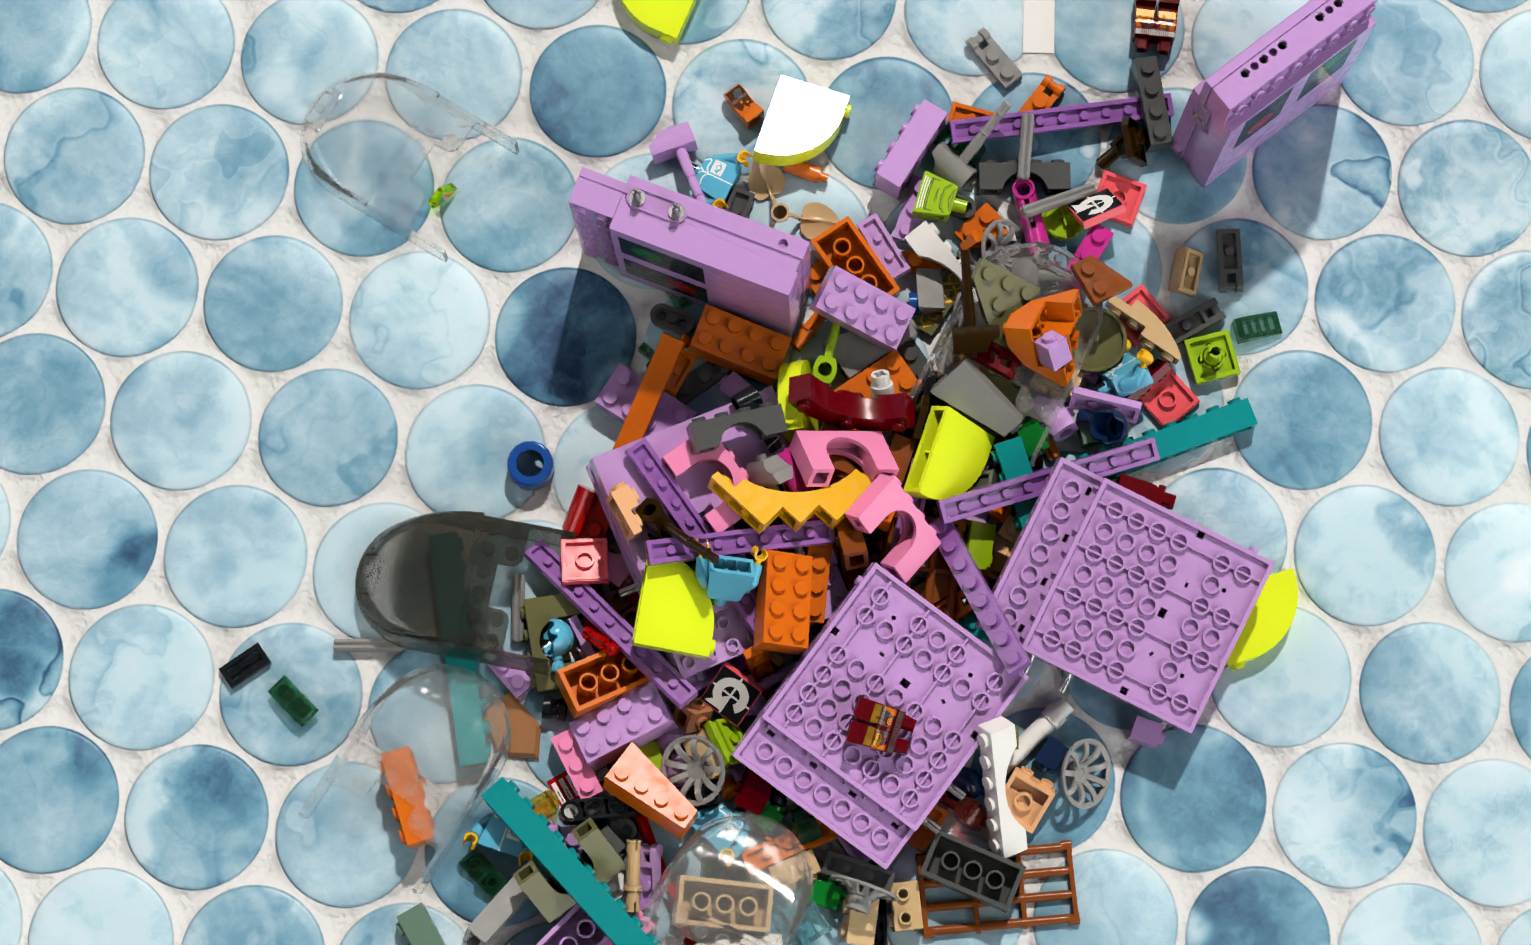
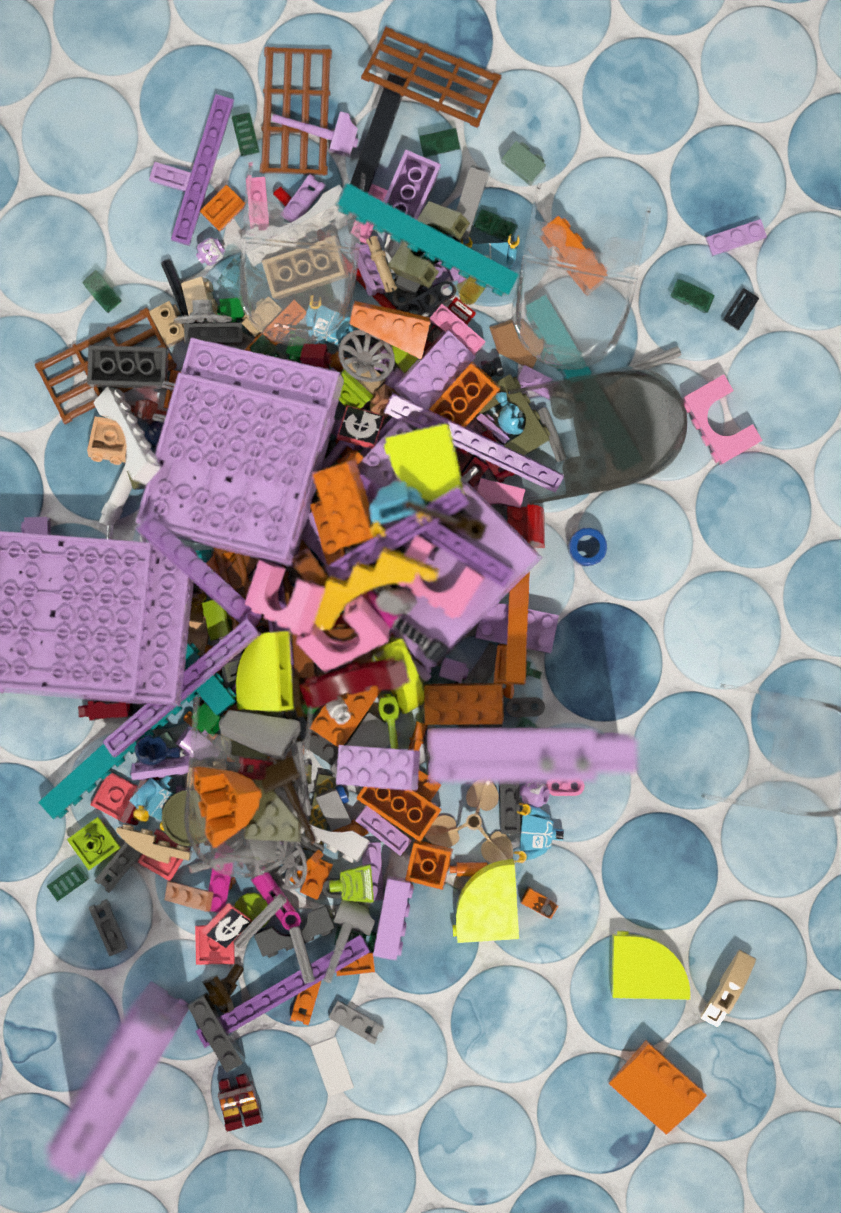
camera: 165 degrees right, 10 degrees up
(214, 749) = (736, 237): none -> lavender plate
(338, 575) = (722, 447): none -> bright pink arch
(442, 195) = (746, 735): clear neon green tile -> none
(584, 561) = (514, 485): coral tile -> none
(600, 641) = (476, 426): red axle -> none
(623, 503) = (497, 527): light nougat plate -> none
(678, 142) = (579, 851): lavender piece -> none
(764, 421) = (454, 607): dark grey arch -> none
(847, 189) = (429, 864): none -> orange brick
(887, 726) = (234, 435): dark red hips -> none
(1050, 755) = (103, 480): dark blue brick -> none
(1053, 350) = (214, 788): lavender brick -> none
(1079, 773) = (76, 475): light grey wheel -> none
(1099, 280) = (200, 861): dark orange wing -> none
(1126, 257) = (188, 896): none -> nougat plate
(1186, 271) = (139, 905): tan slope -> none

